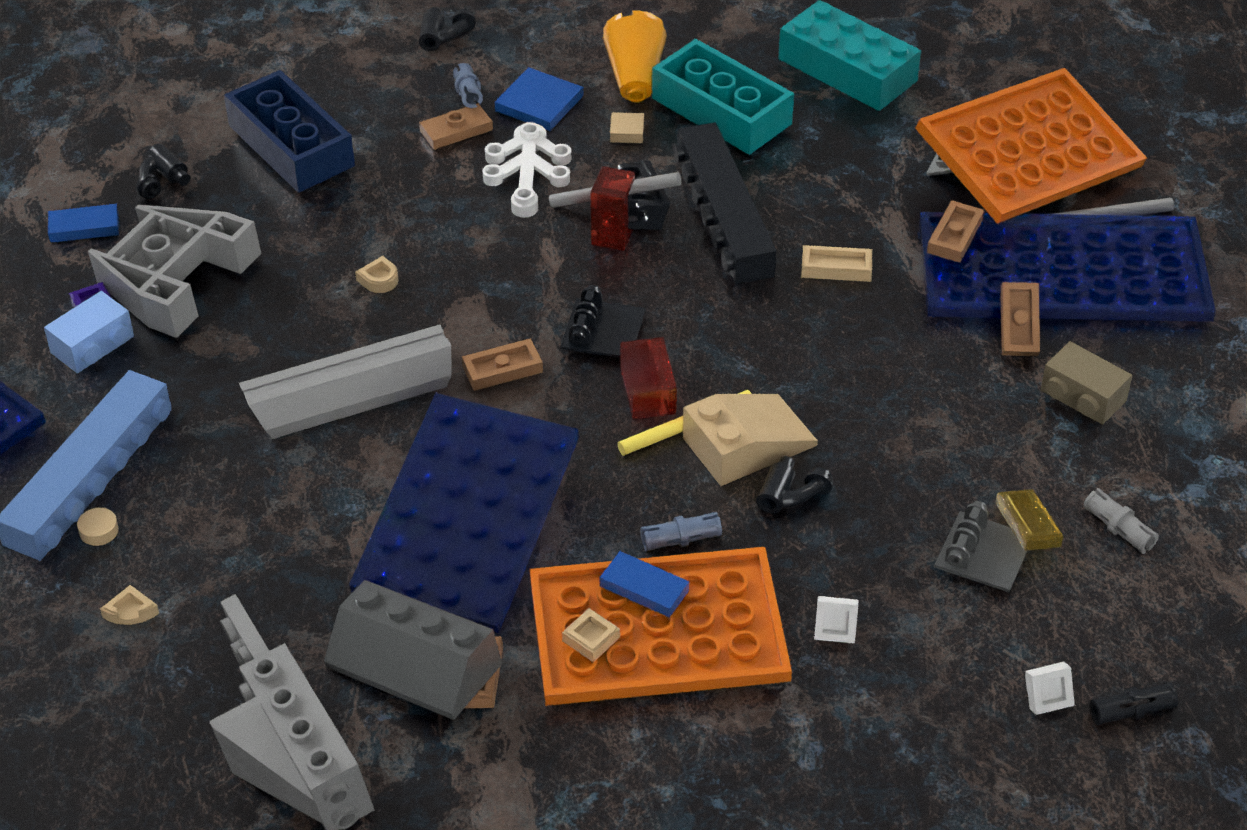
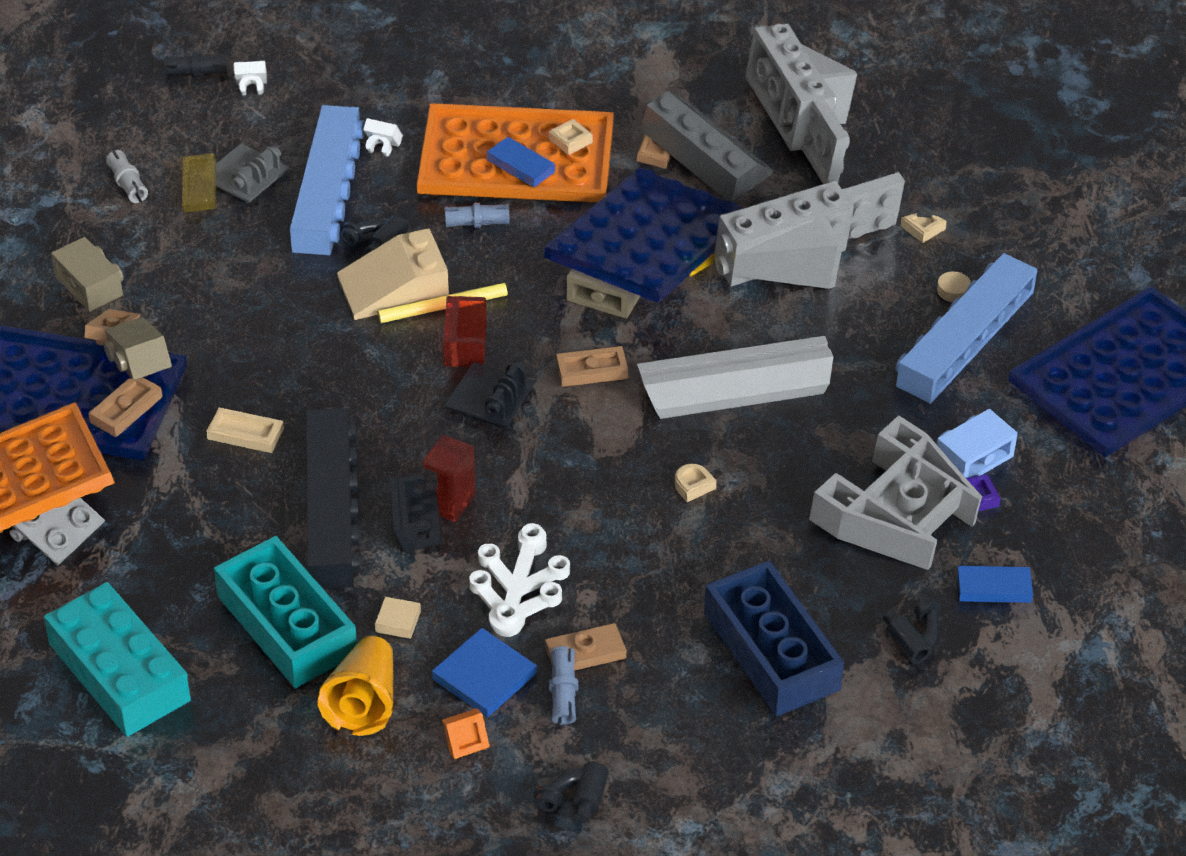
camera: 170 degrees left, 0 degrees up
(273, 519) = (803, 233): none -> light grey wedge
(541, 45) = (465, 733): none -> orange tile
(638, 186) = (439, 508): light grey bar -> none
(878, 547) = (327, 180): none -> medium blue brick
(969, 263) = (137, 348): none -> dark tan brick

